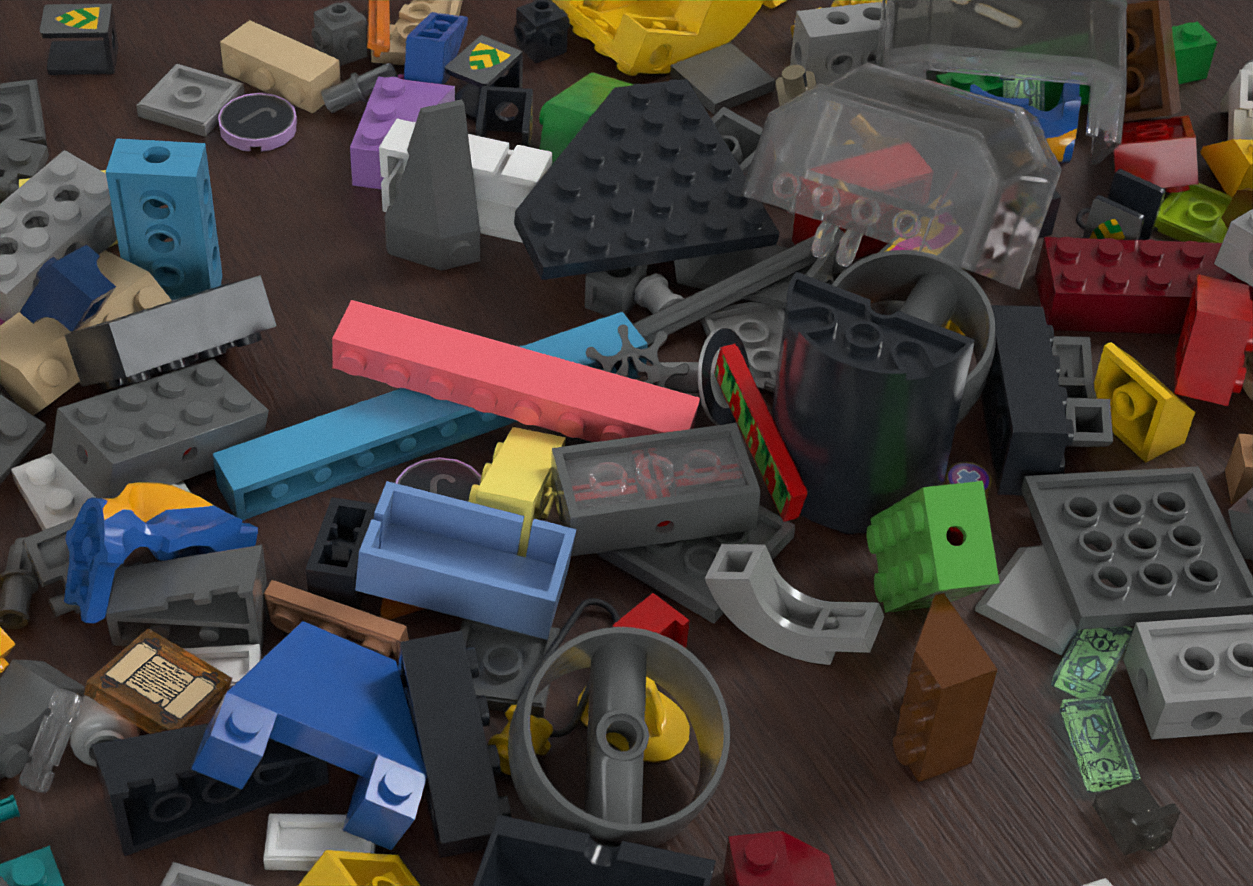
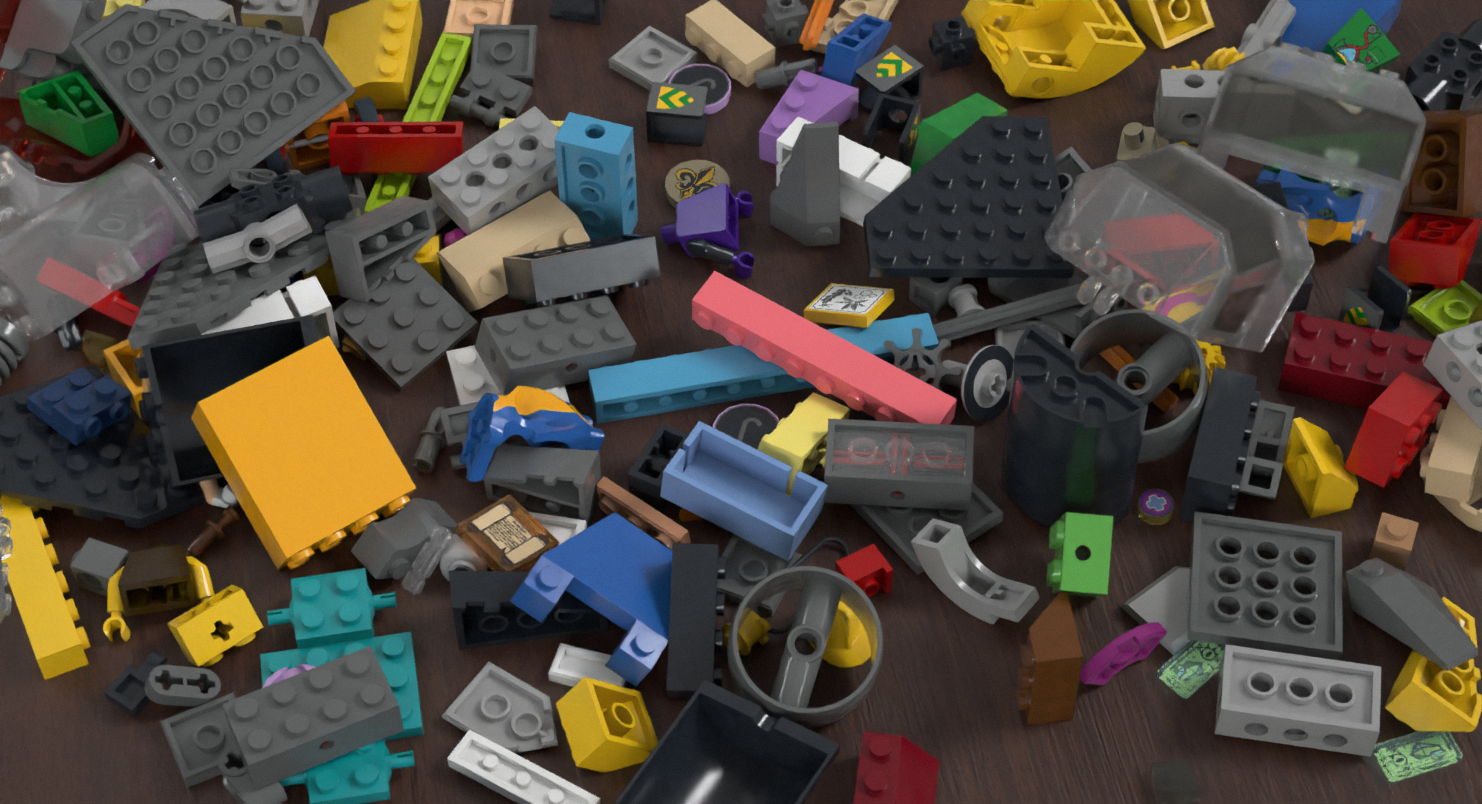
camera: 20 degrees right, 5 degrees up
(69, 290) = (512, 224): dark blue brick -> none
(235, 148) = (676, 114): none -> piece
(287, 225) = (691, 177): none -> tile
(319, 262) = (710, 227): none -> dark purple torso
(524, 319) = (849, 305): none -> tile
(723, 77) = (1091, 111): dark grey tile -> none
(760, 432) = (995, 435): red tile -> none
(1016, 655) = (1121, 652): none -> magenta tile
(1098, 743) = (1172, 726): clear light blue tile -> none

